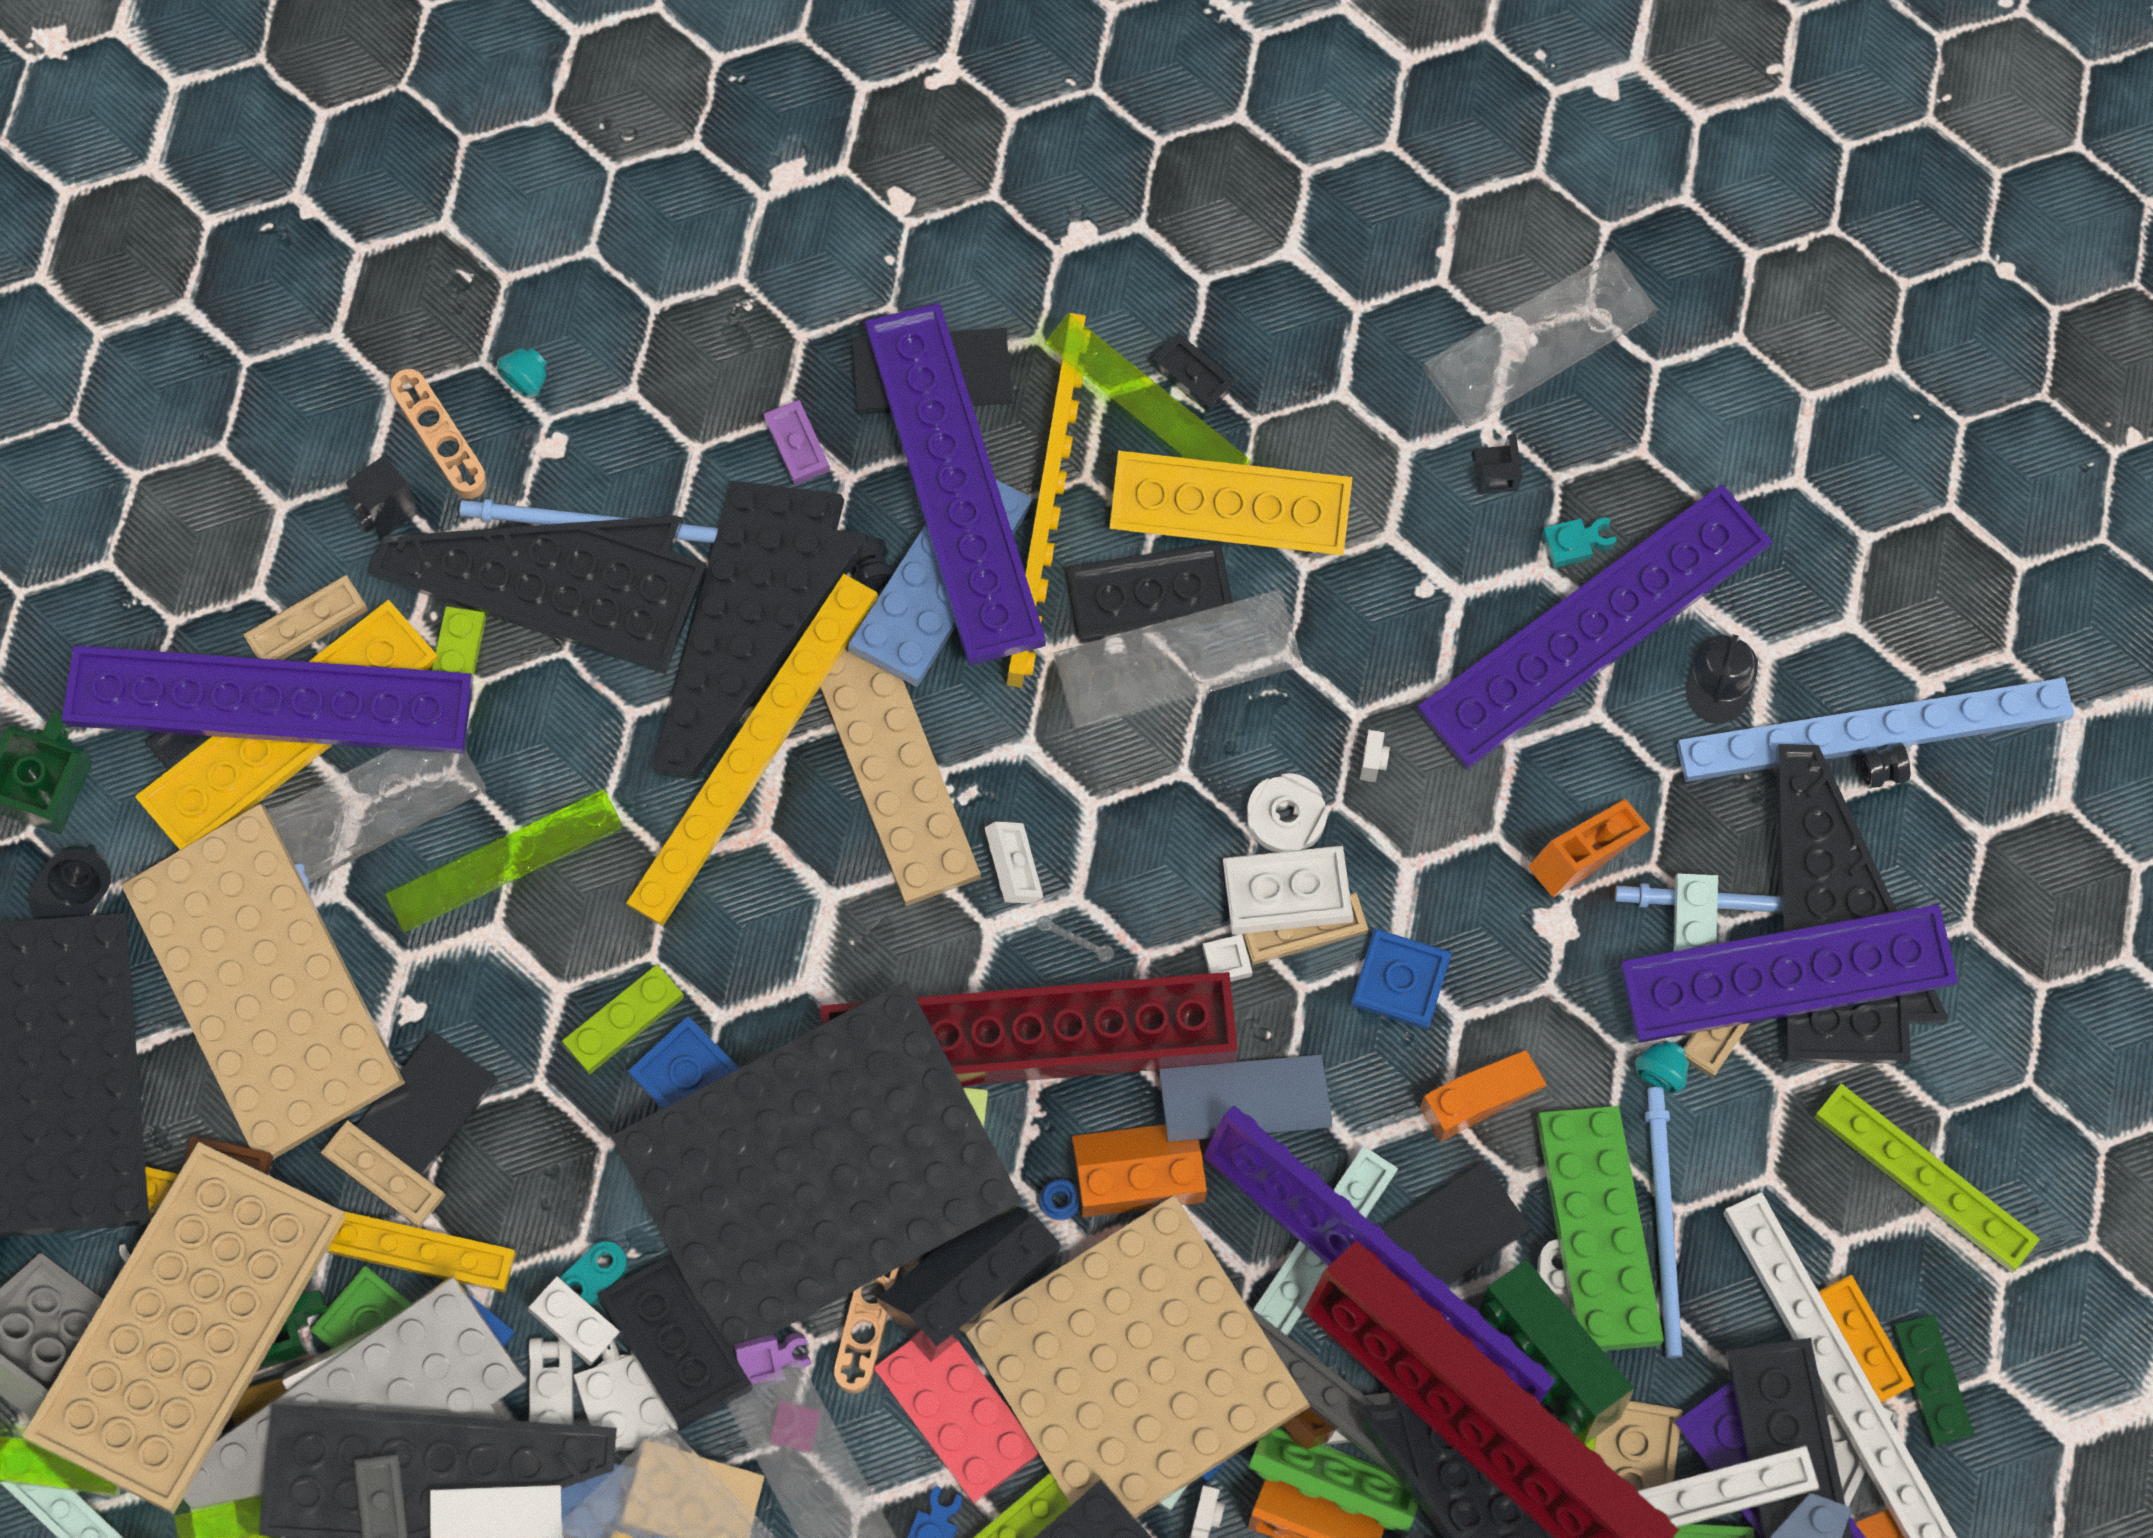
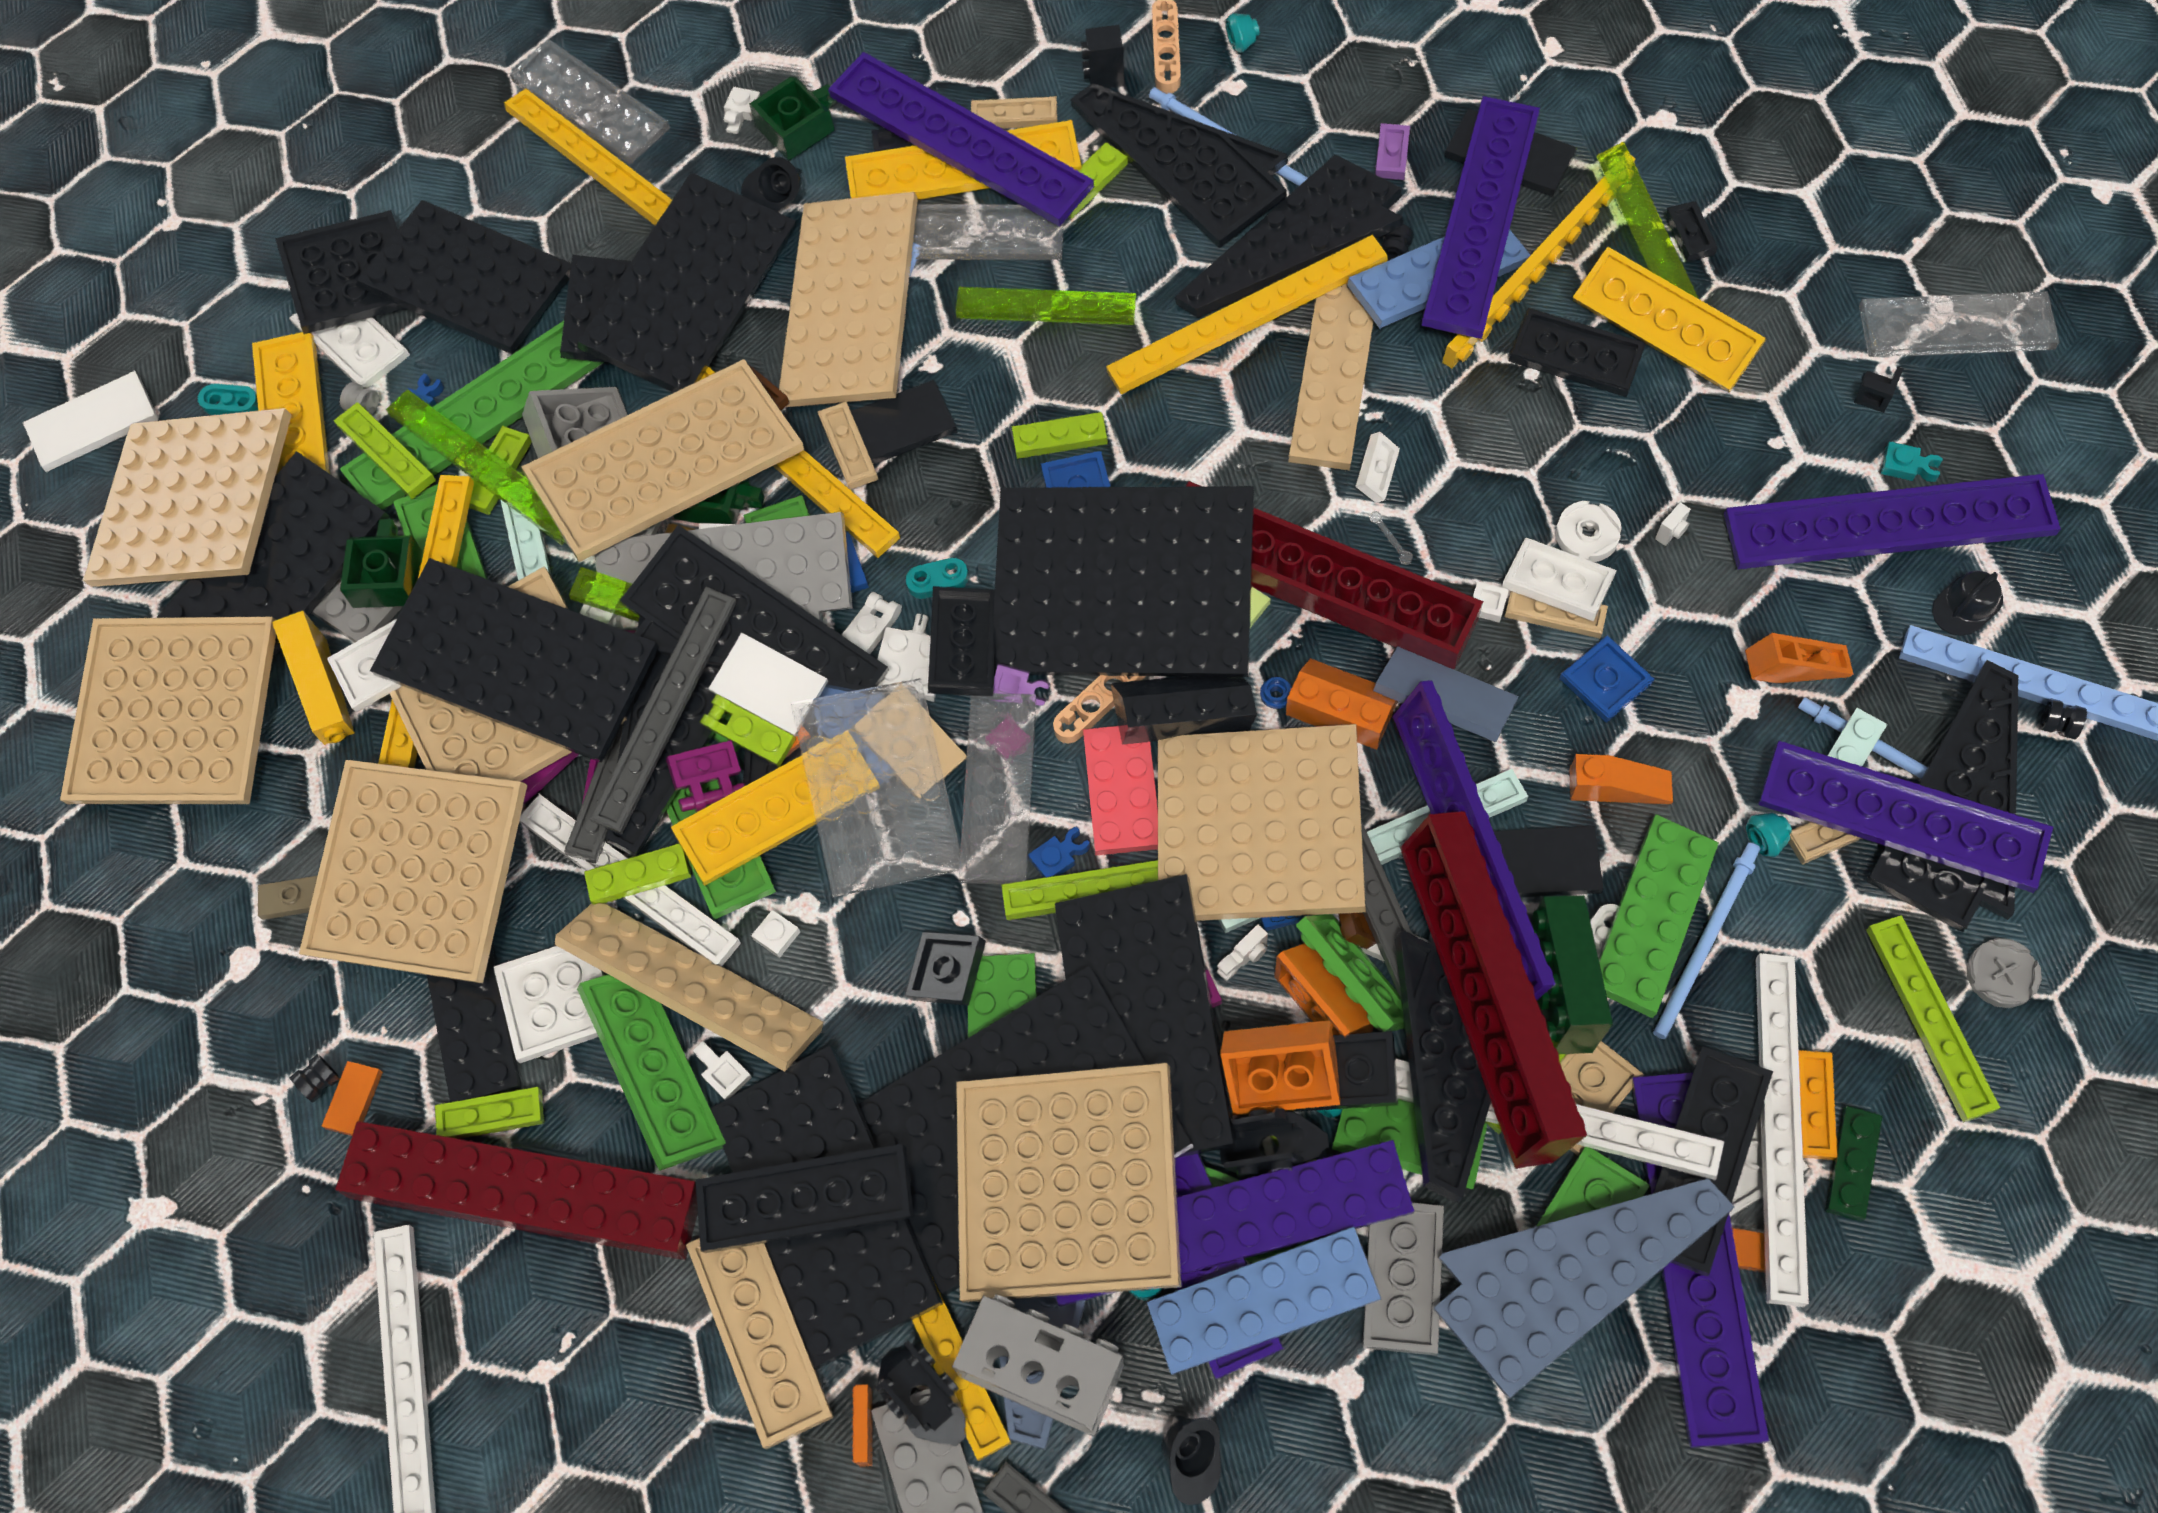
camera: 40 degrees right, 5 degrees down
(573, 1321) = (906, 592): white plate -> none
(1177, 659) = (1571, 399): clear plate -> none
(1969, 1085) = (2003, 973): none -> light grey tile

